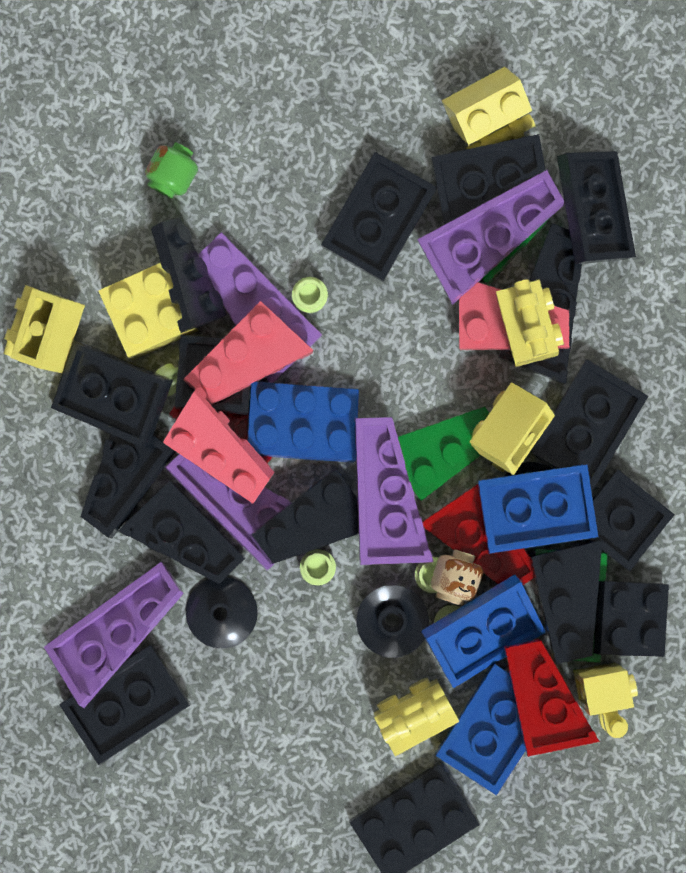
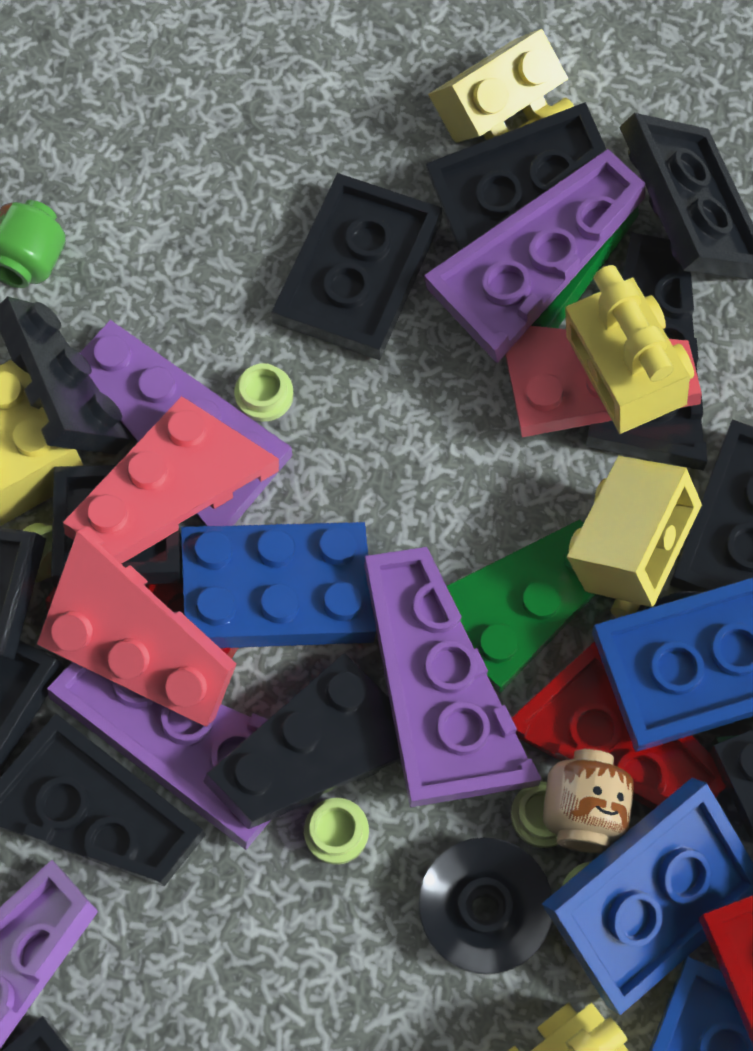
camera: 10 degrees left, 20 degrees down
(239, 605) = (196, 966): black dish -> none

